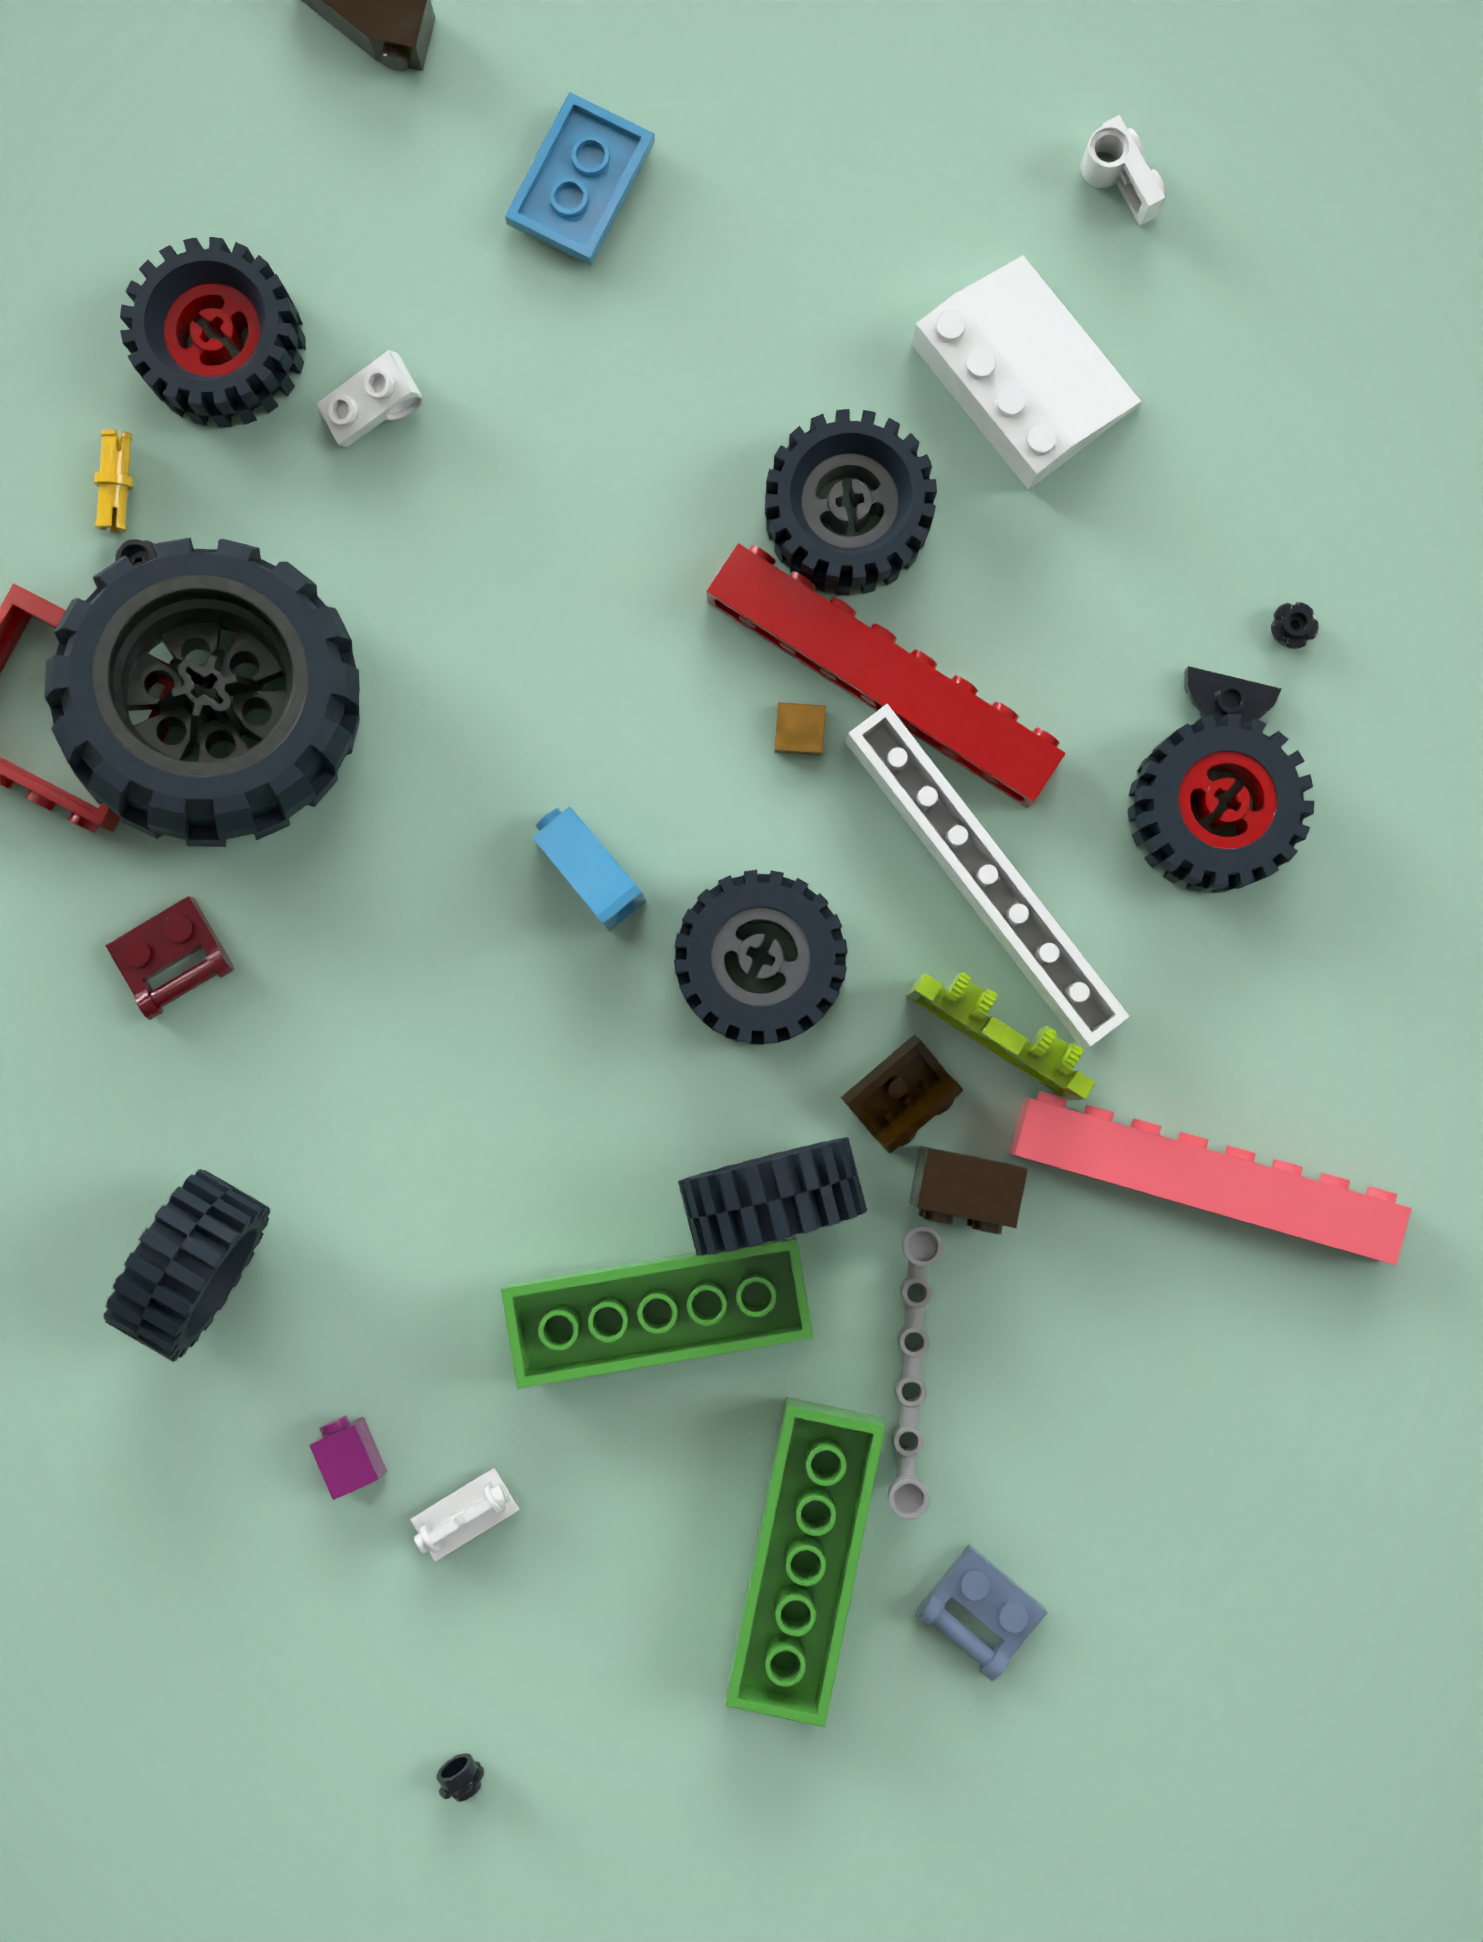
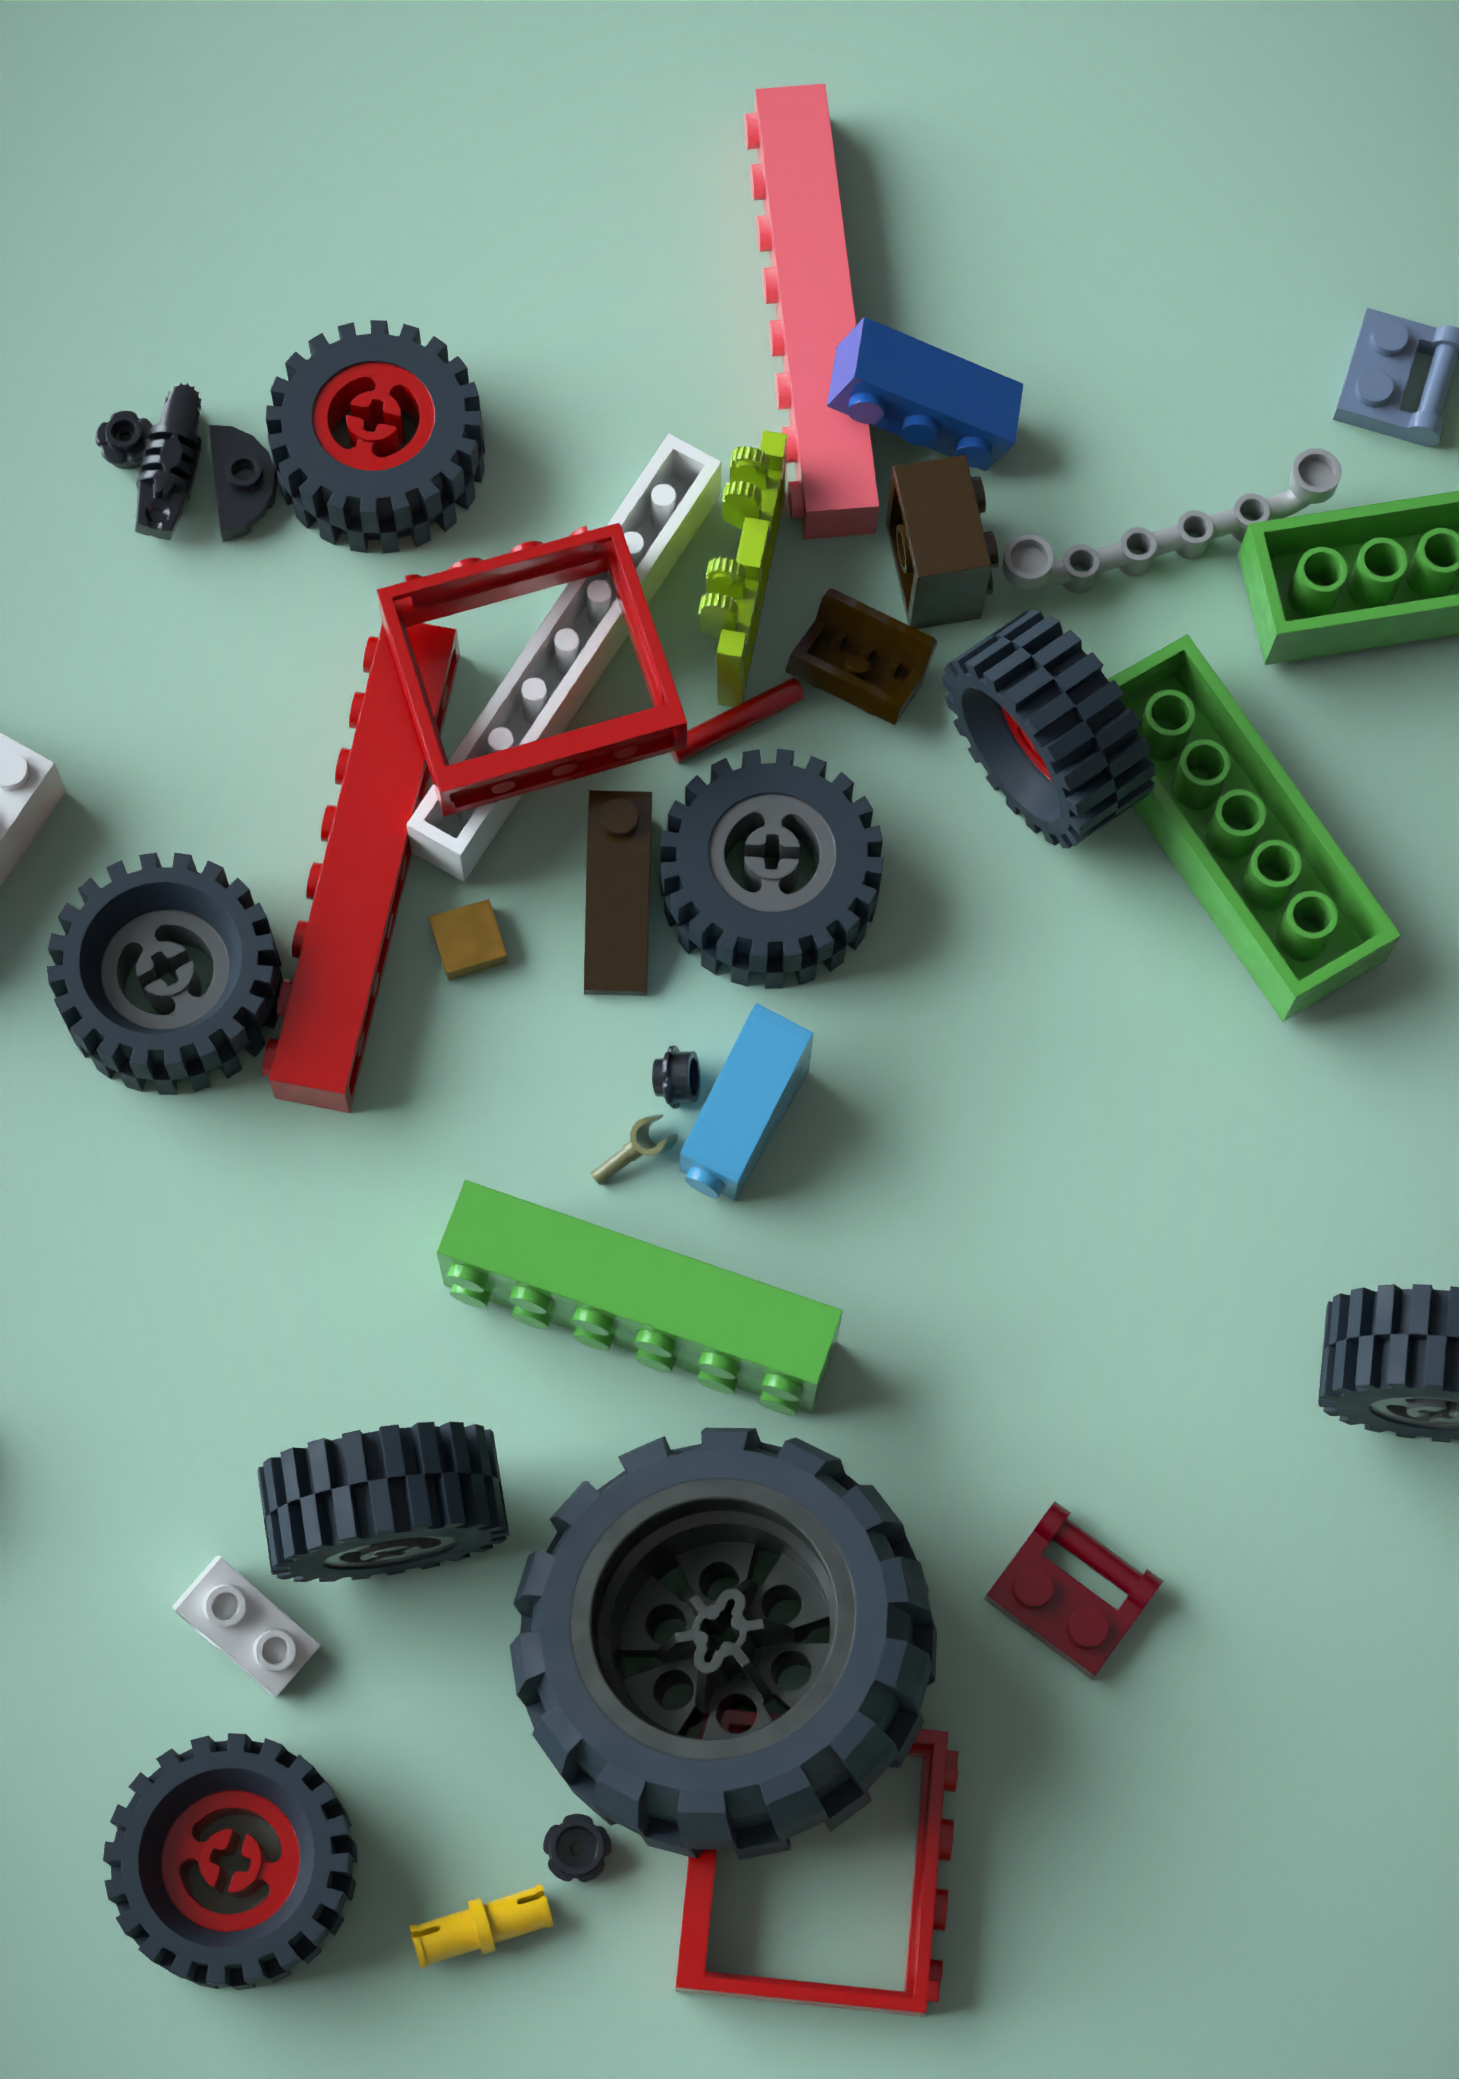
camera: 115 degrees left, 15 degrees down
(391, 501) = (382, 1501): none -> black wheel
(475, 735) = (638, 1298): none -> bright green brick
(597, 790) = (639, 1145): none -> olive hand
(636, 833) = (677, 1077): none -> black plate
(789, 845) = (617, 892): none -> dark brown slope
(895, 985) = (740, 718): none -> red piece
(1054, 818) = (558, 757): none -> red window
(1091, 1227) = (924, 394): none -> blue brick
(1258, 647) = (169, 464): none -> black hinge

